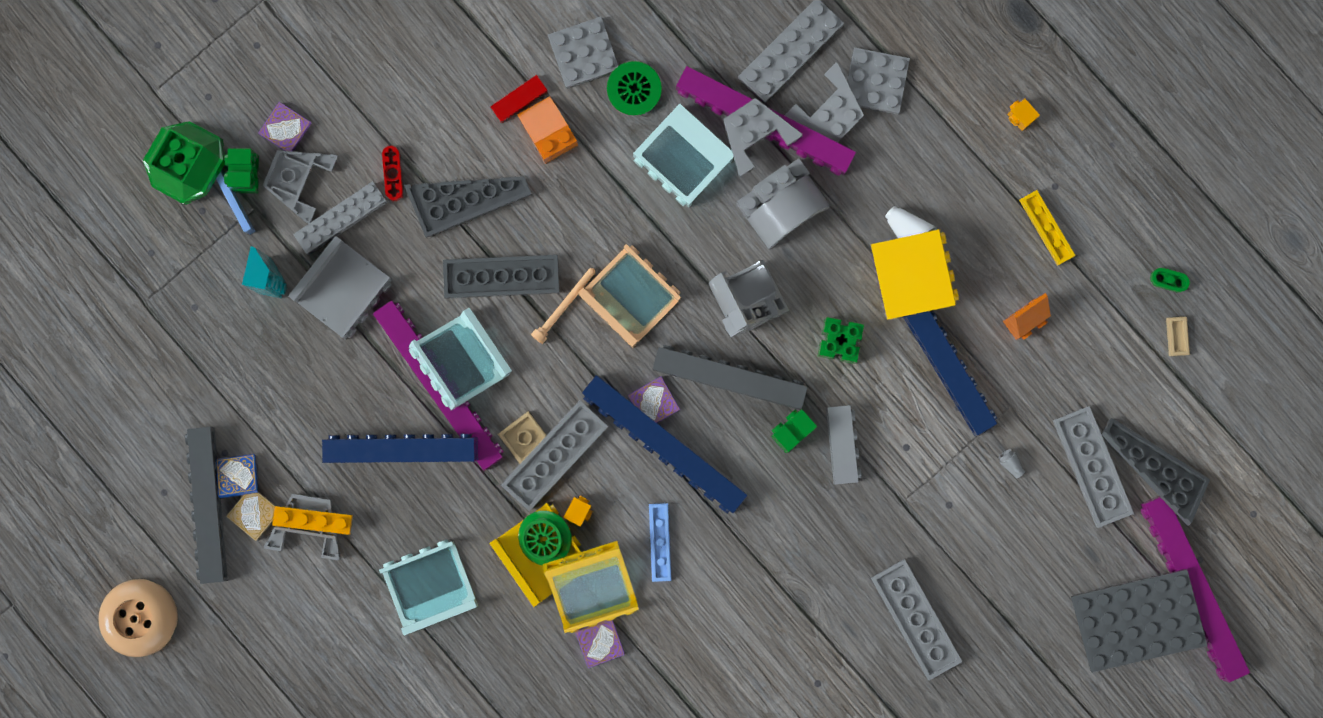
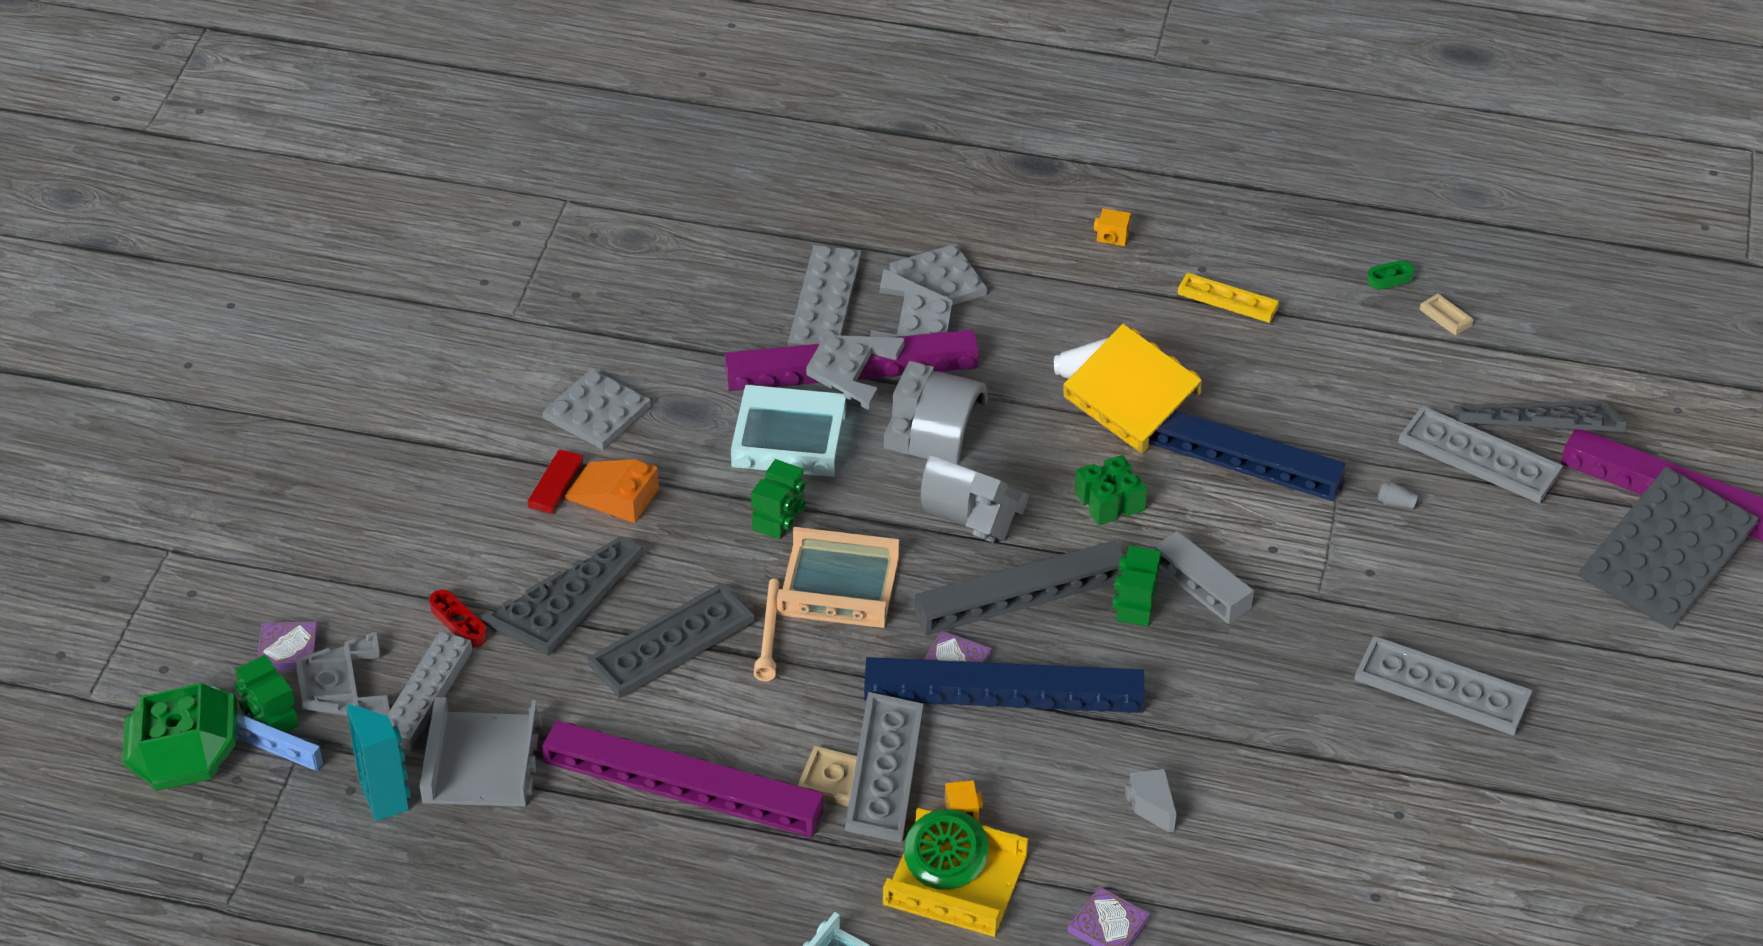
camera: 35 degrees left, 40 degrees down
(400, 449) = (688, 856): dark blue brick -> none
(460, 359) = (691, 728): panel -> none
(591, 587) = (1044, 861): clear light blue panel -> none
(632, 215) = (778, 499): none -> green brick
(635, 68) = (665, 404): green piece -> none
(660, 542) = (1086, 784): light blue tile -> none
(685, 581) = (1152, 798): none -> light grey slope
(1029, 317) = (1284, 361): orange slope -> none

